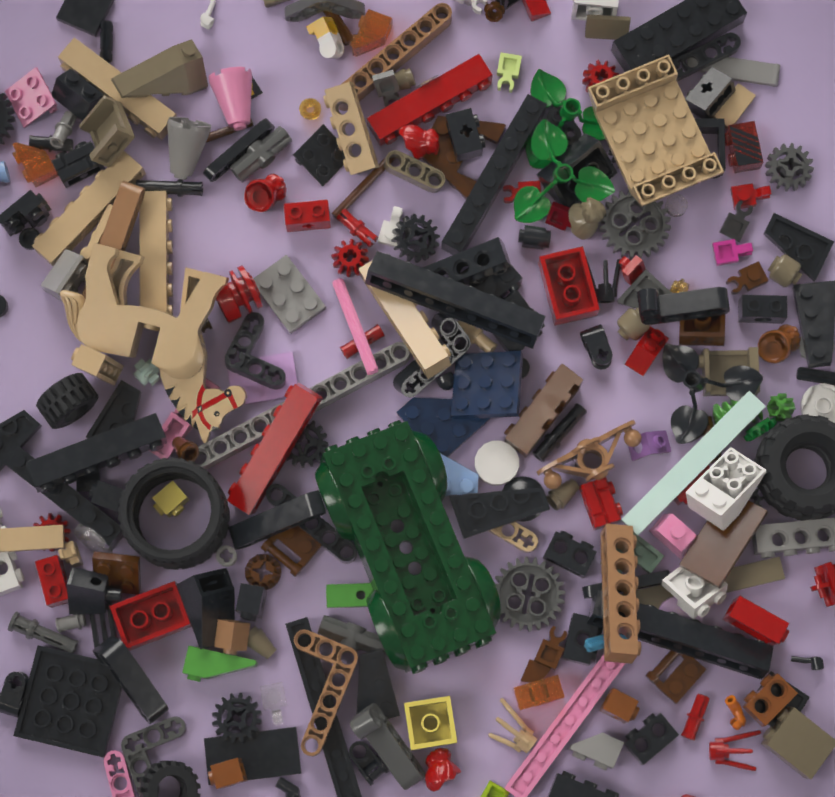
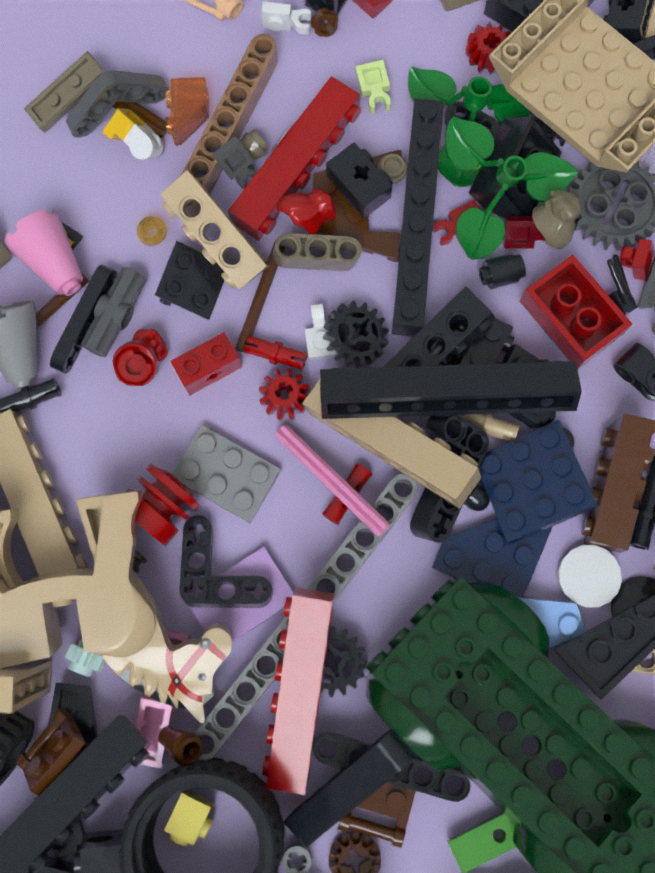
camera: 20 degrees left, 0 degrees up
(102, 418) = (51, 752): none -> reddish brown plate
(492, 135) = (394, 166): none -> dark tan plate

